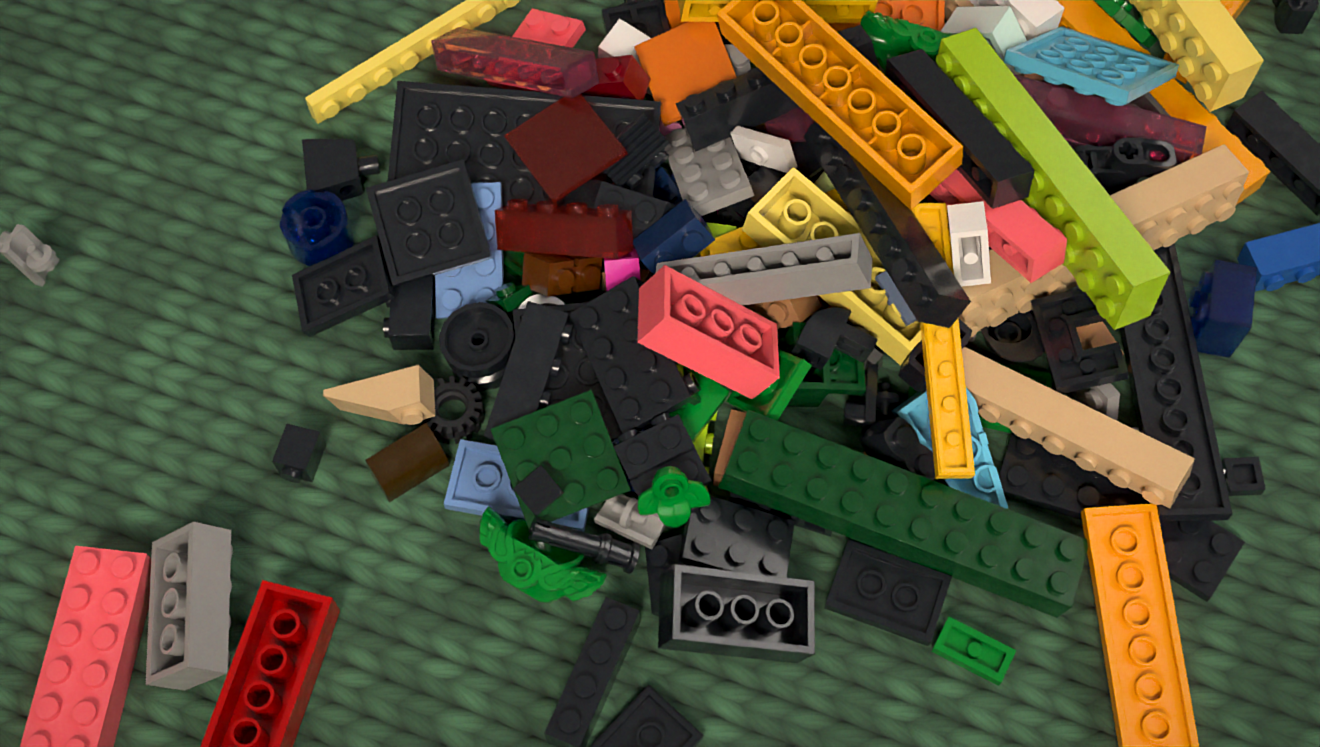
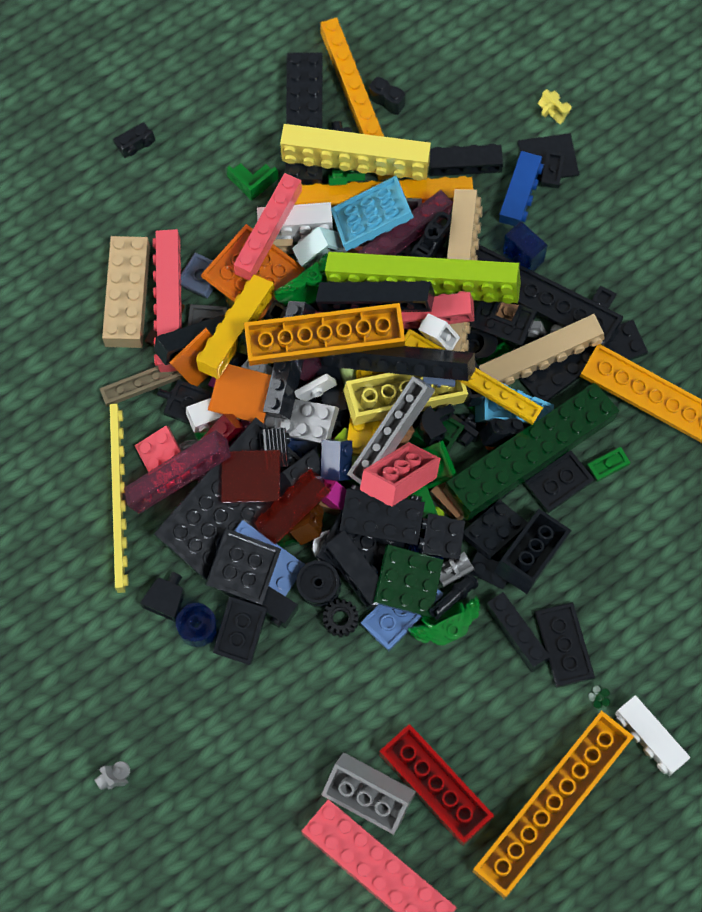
camera: 55 degrees left, 5 degrees up
(299, 453) = (316, 702): black brick -> none
(396, 396) = (321, 639): tan slope -> none
(407, 462) = (356, 654): dark brown brick -> none
(510, 296) = (304, 554): dark green plate -> none
(538, 491) = (421, 599): black slope -> none
(672, 497) = (462, 542): green plate -> none

